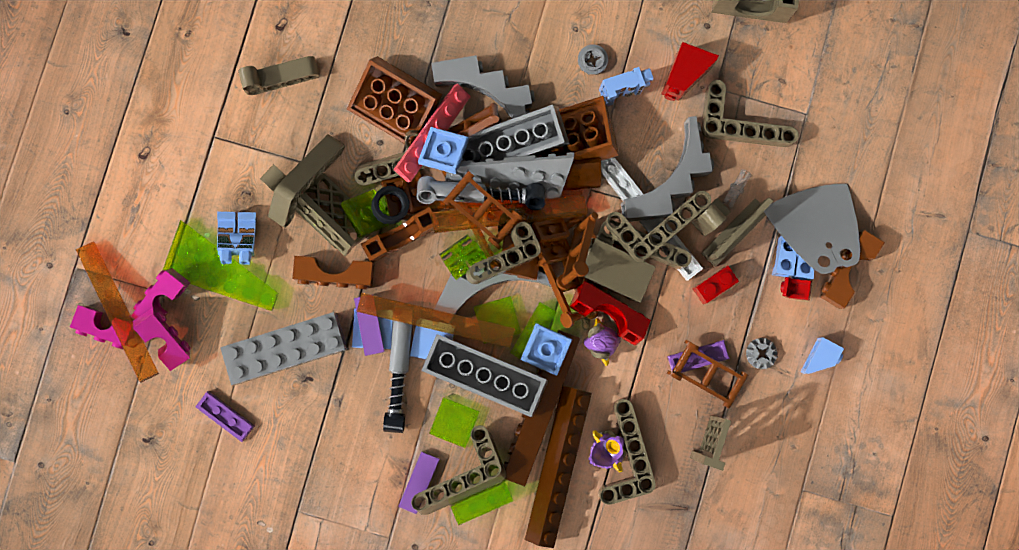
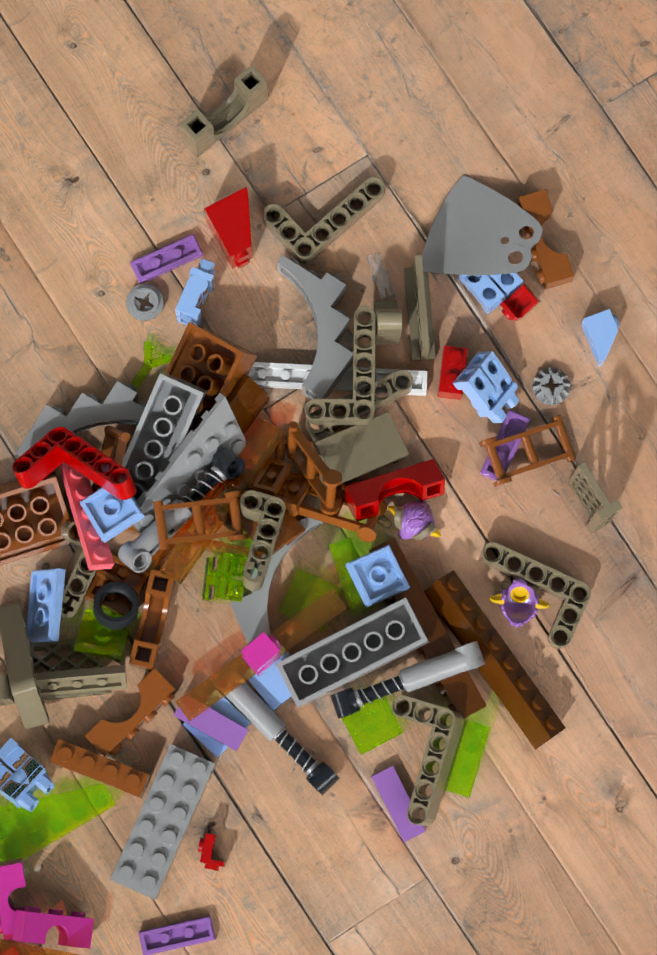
camera: 50 degrees left, 5 degrees down
(285, 289) = (100, 768): none -> dark orange arch
(291, 388) = (206, 847): none -> red bracket
(353, 162) = (45, 605): none -> light blue tile
(432, 320) = (261, 653): none -> dark pink arch
(457, 86) = (64, 446): none -> red beam
(500, 425) = (410, 678): none -> piece
(558, 95) = (149, 363): none -> clear neon green piece
(631, 49) = (166, 259): none -> medium lavender tile
(726, 314) = (488, 386): none -> light blue hips

